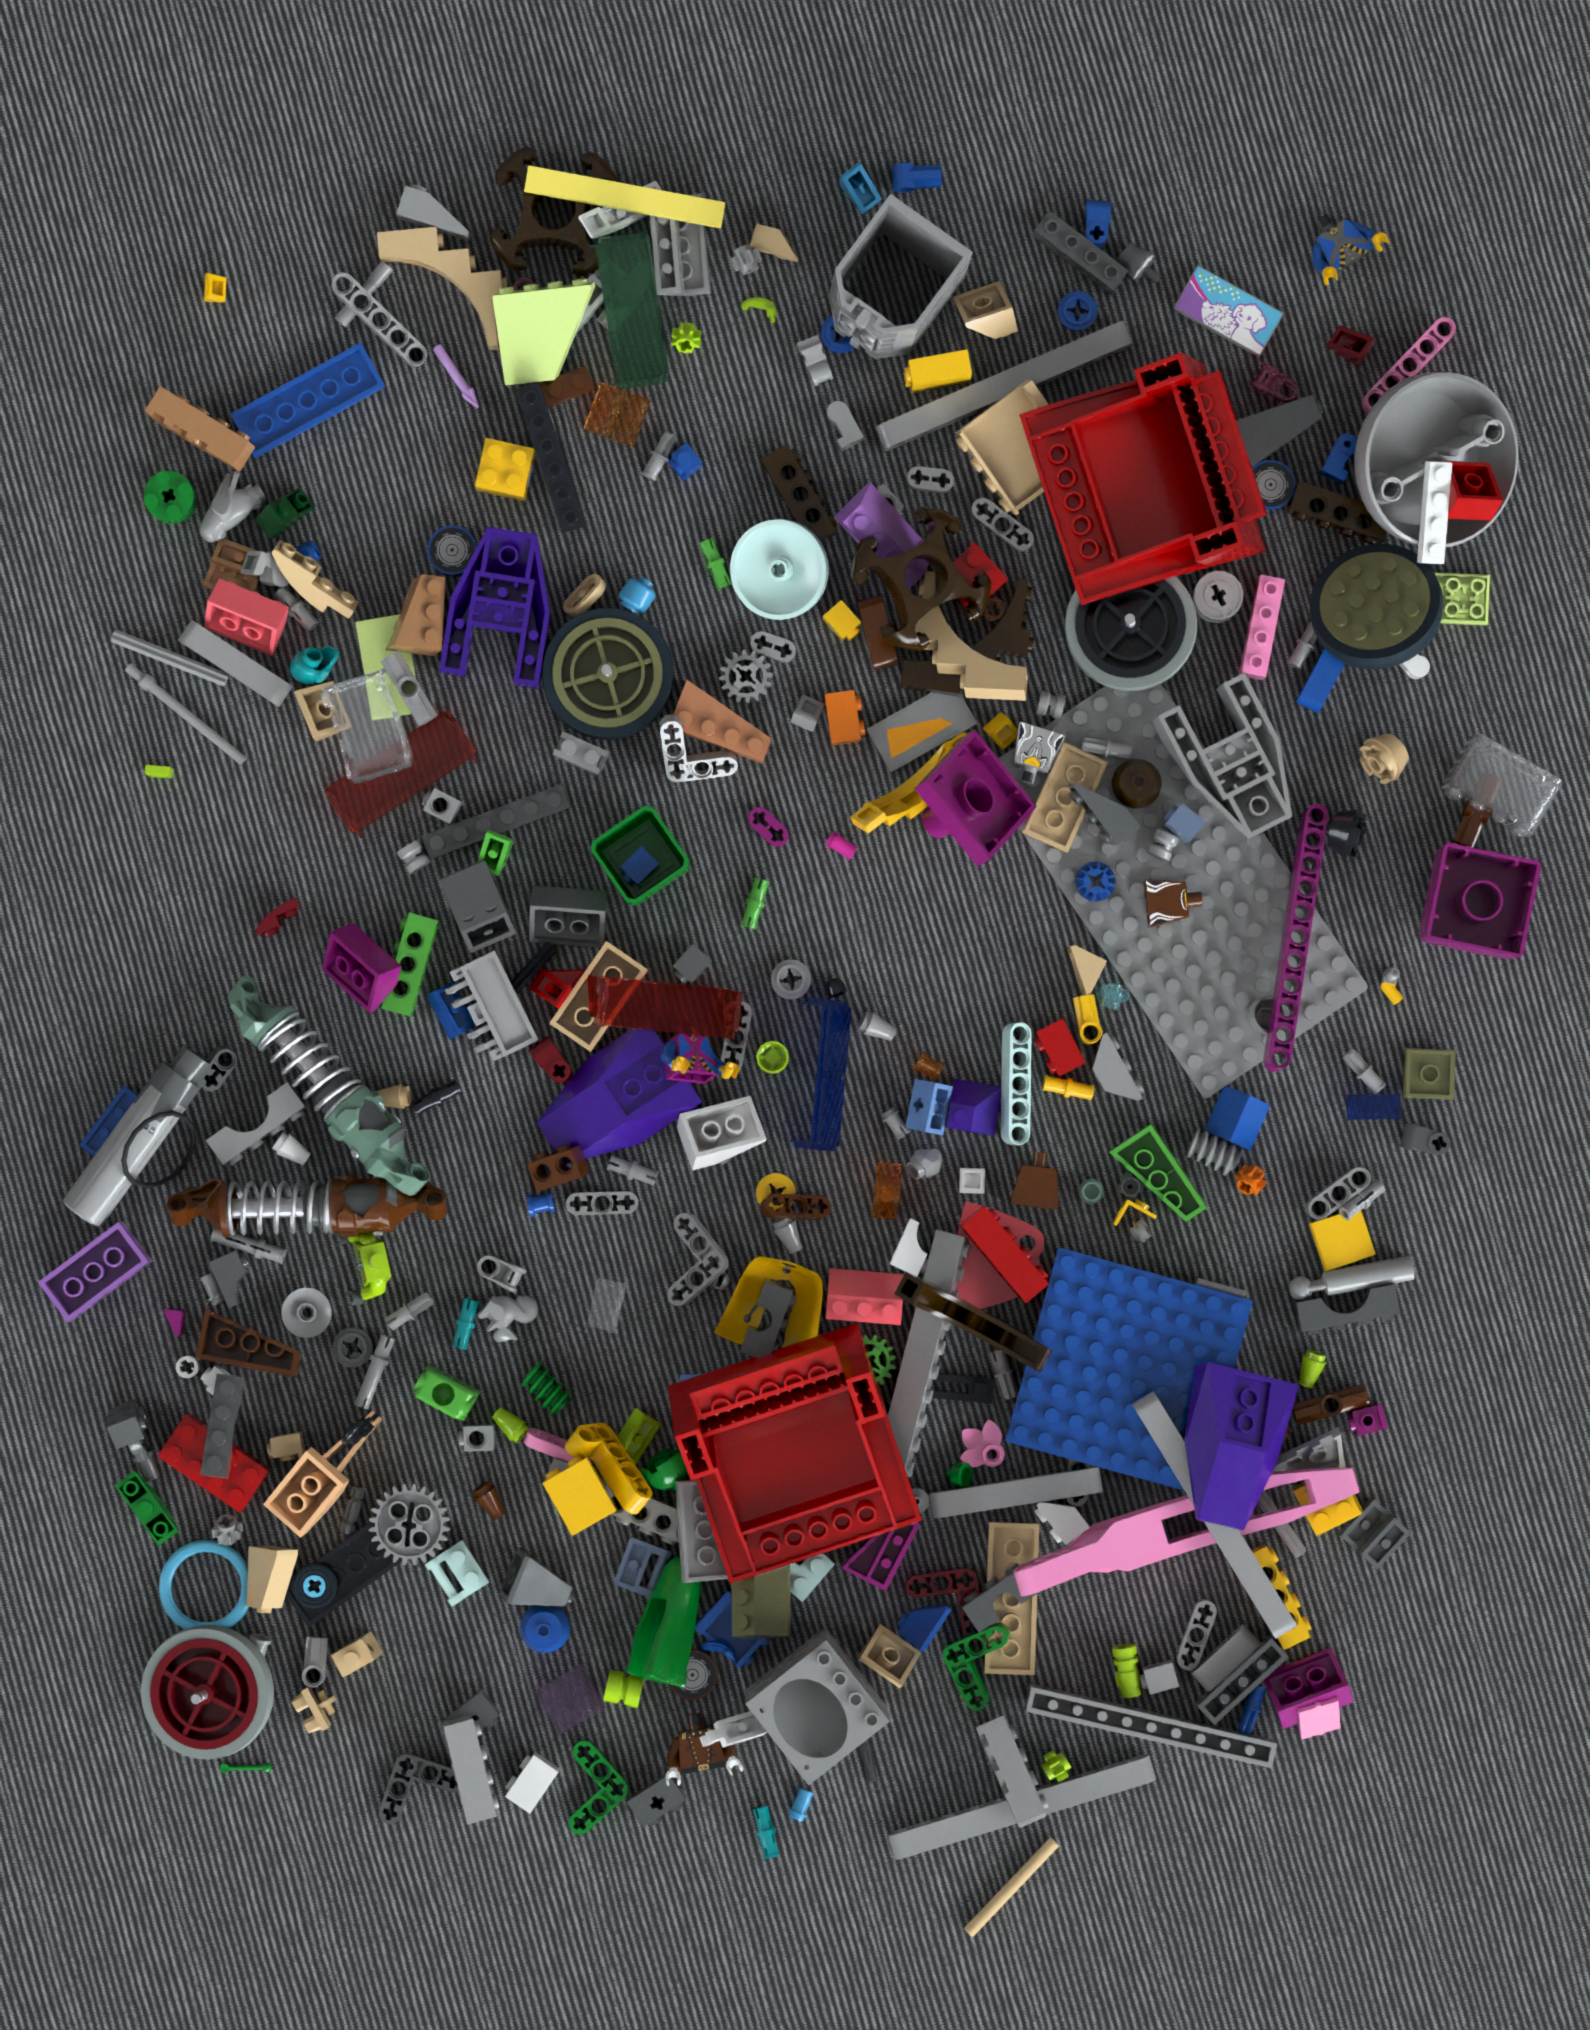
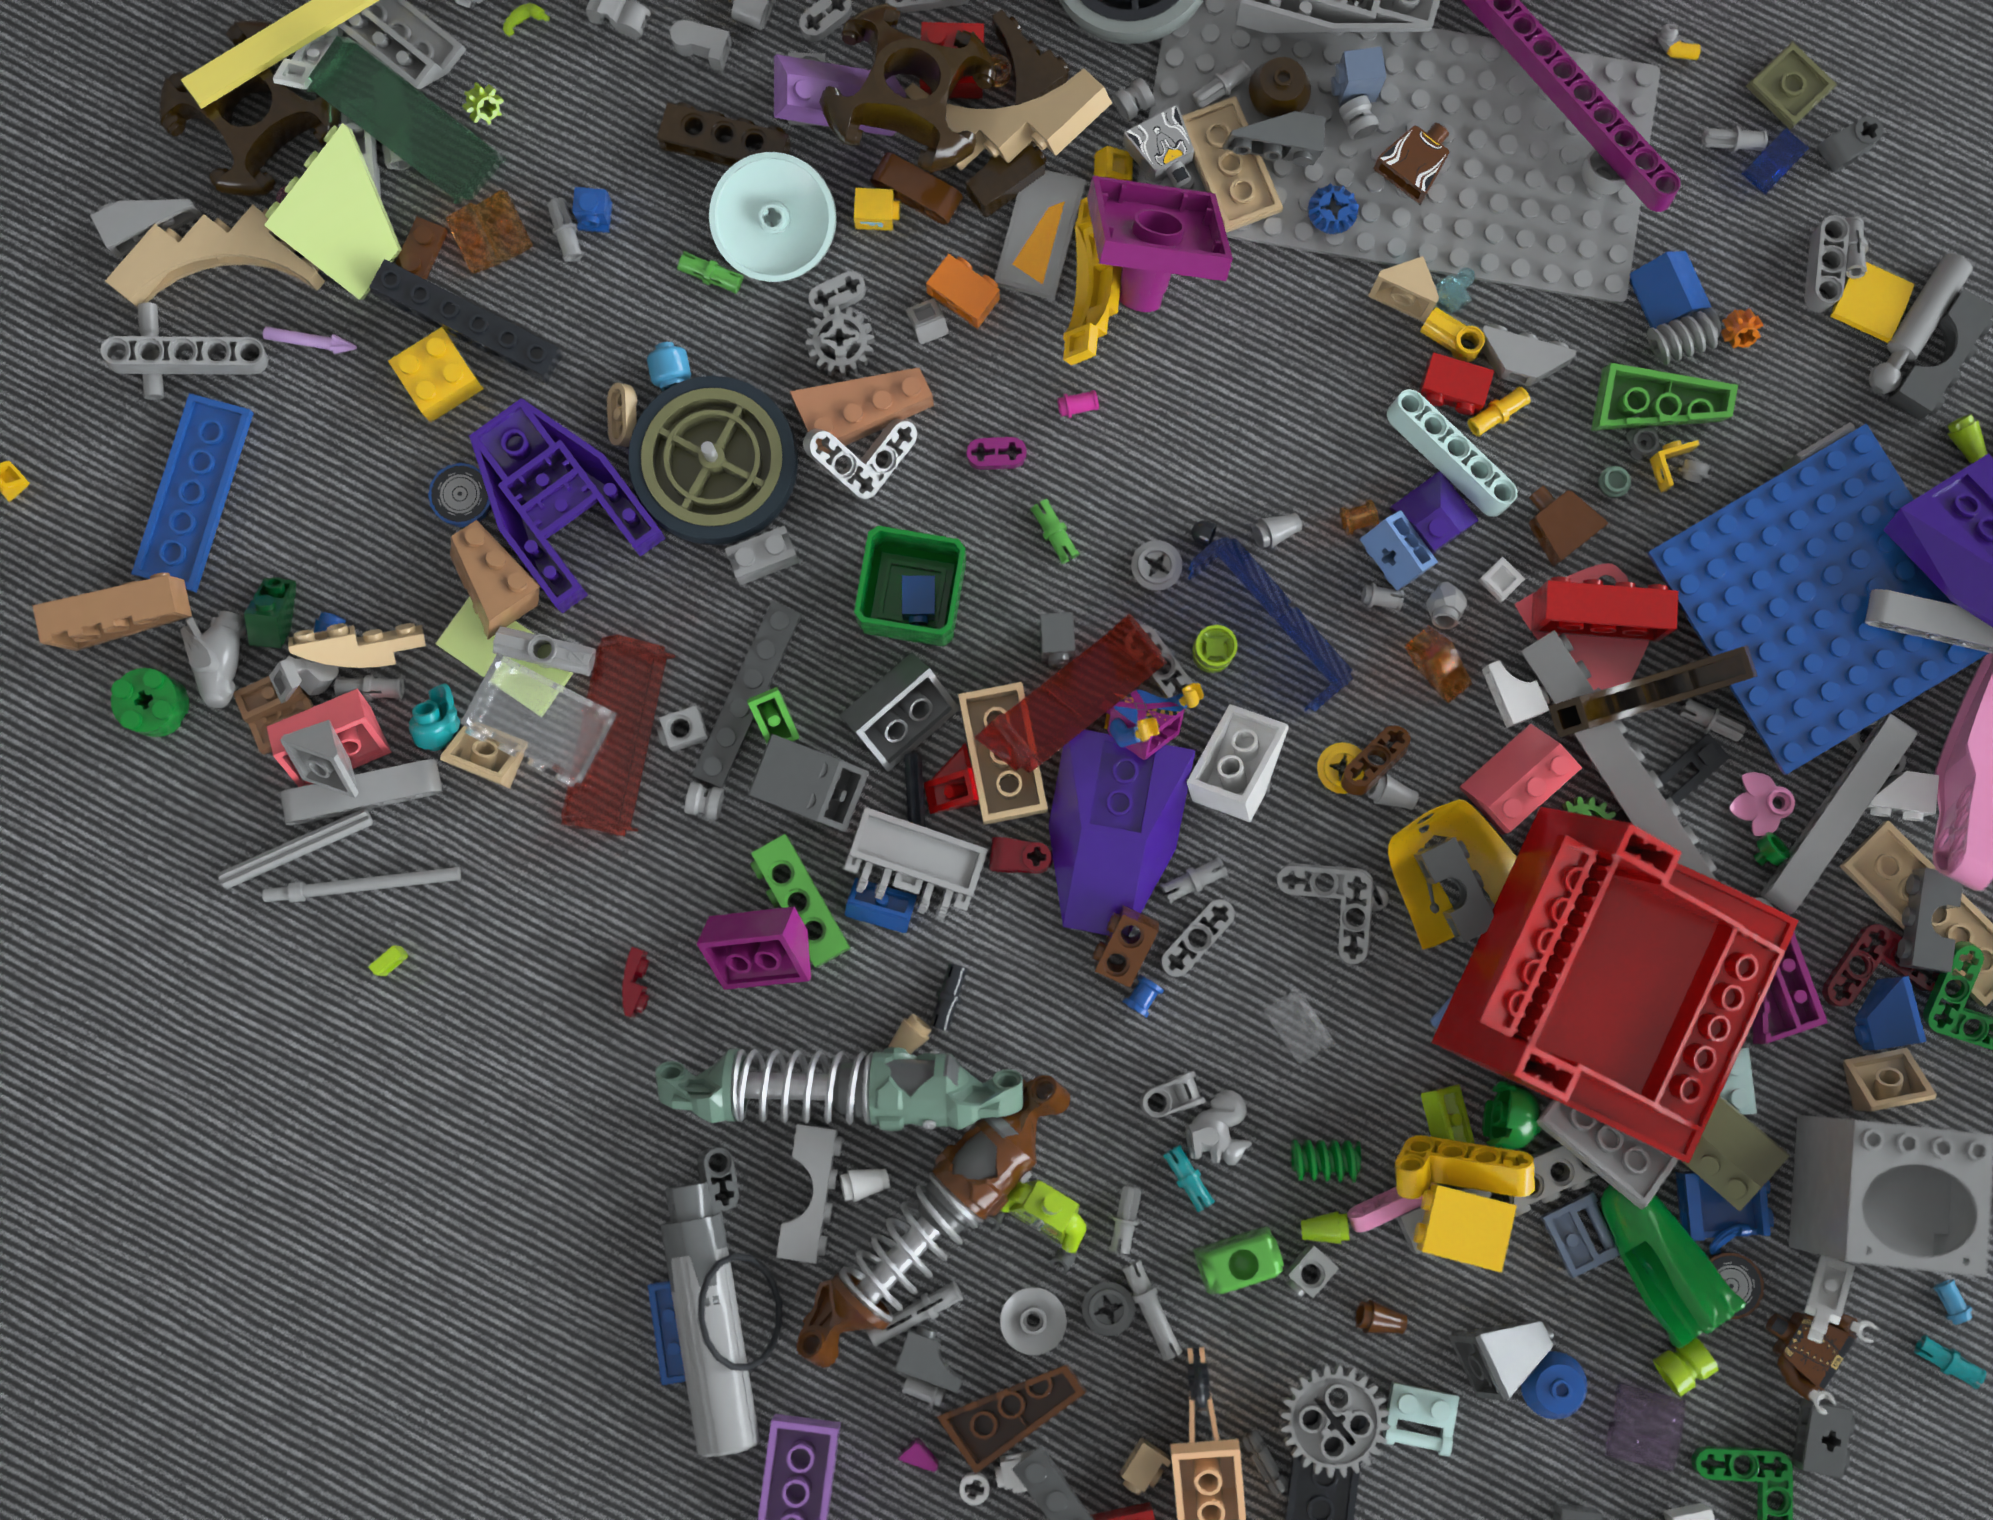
camera: 45 degrees left, 5 degrees down
(231, 628) = (321, 758): none -> light grey slope

